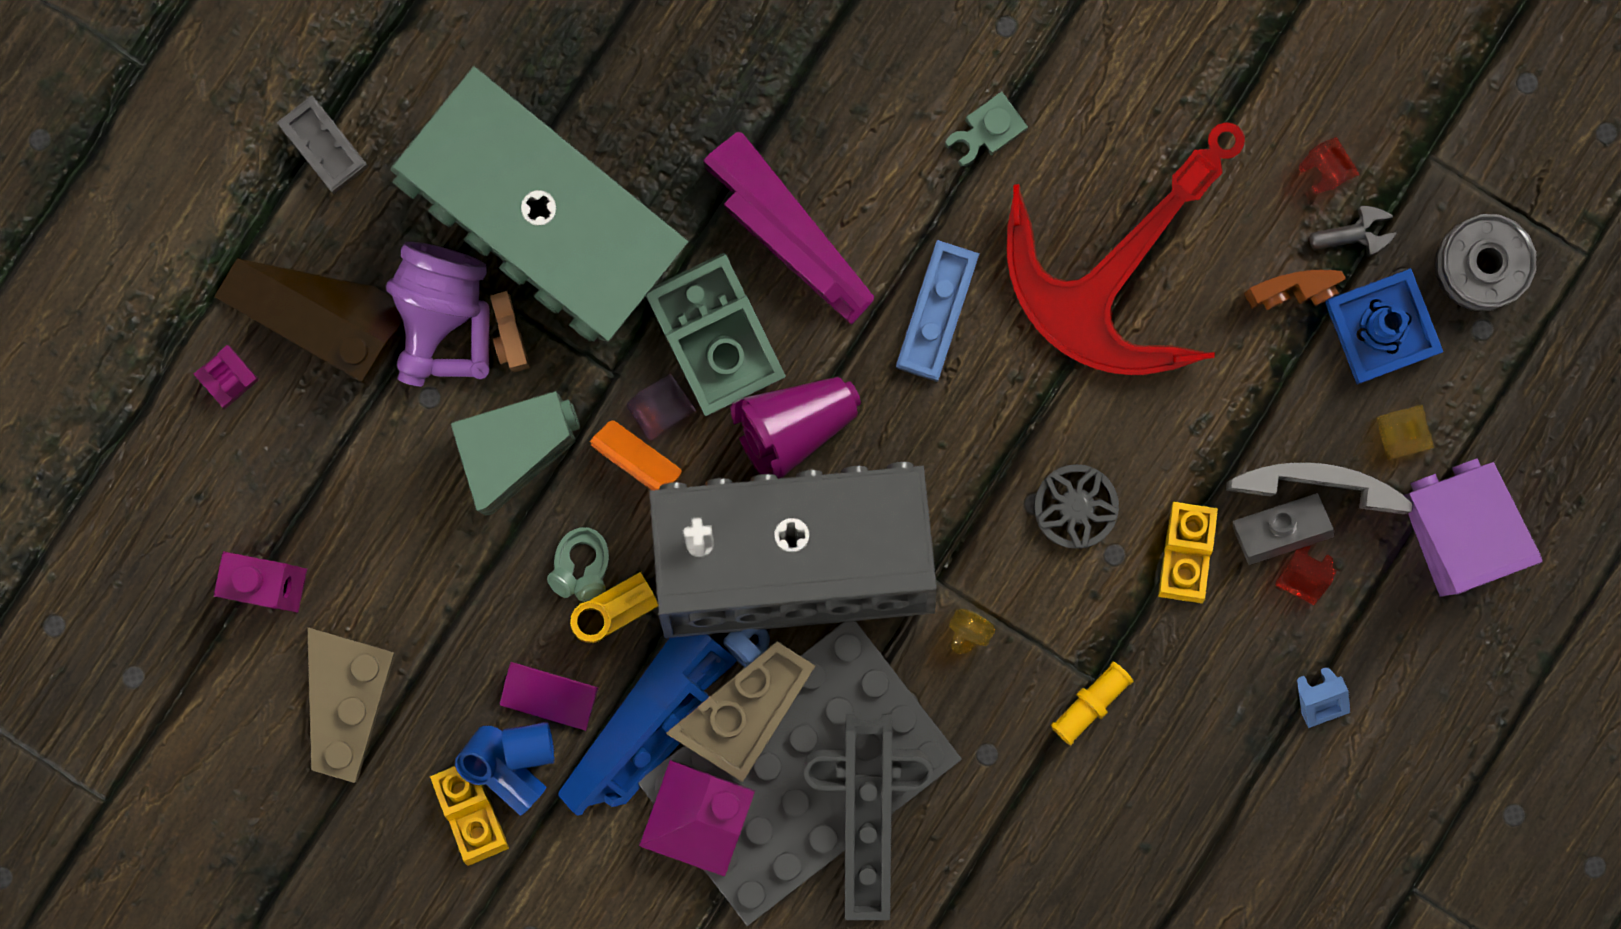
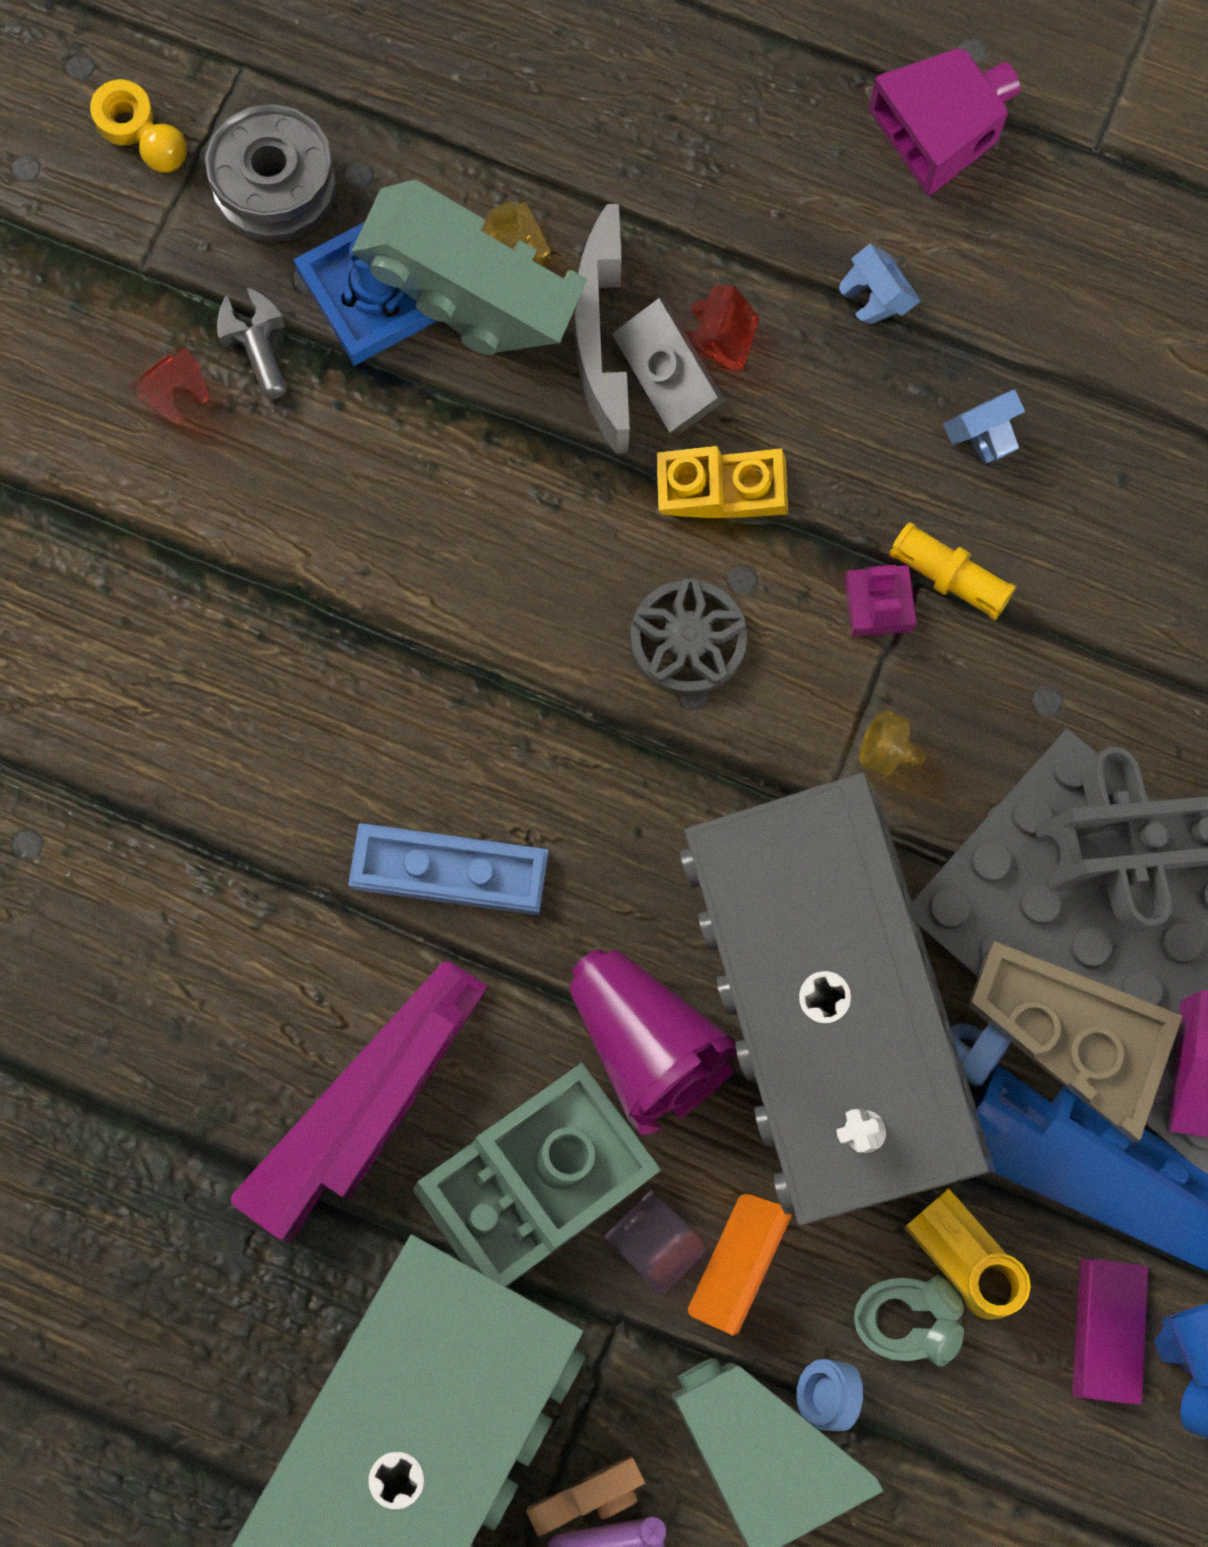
camera: 100 degrees left, 10 degrees down
(542, 501) = (830, 1395): none -> medium blue tile
(991, 126) = (176, 838): sand green plate -> none
(1079, 311) = (419, 674): red piece -> none
(1080, 648) = (880, 600): none -> magenta tile
(1200, 751) = (988, 426): none -> medium blue tile
(1306, 285) = (338, 383): dark orange slope -> none
(1365, 387) = (462, 274): none -> sand green wedge
(1455, 776) = (942, 113): none -> magenta torso
(1469, 528) = (630, 130): medium lavender slope -> none
(1524, 184) = (160, 145): none -> yellow plate

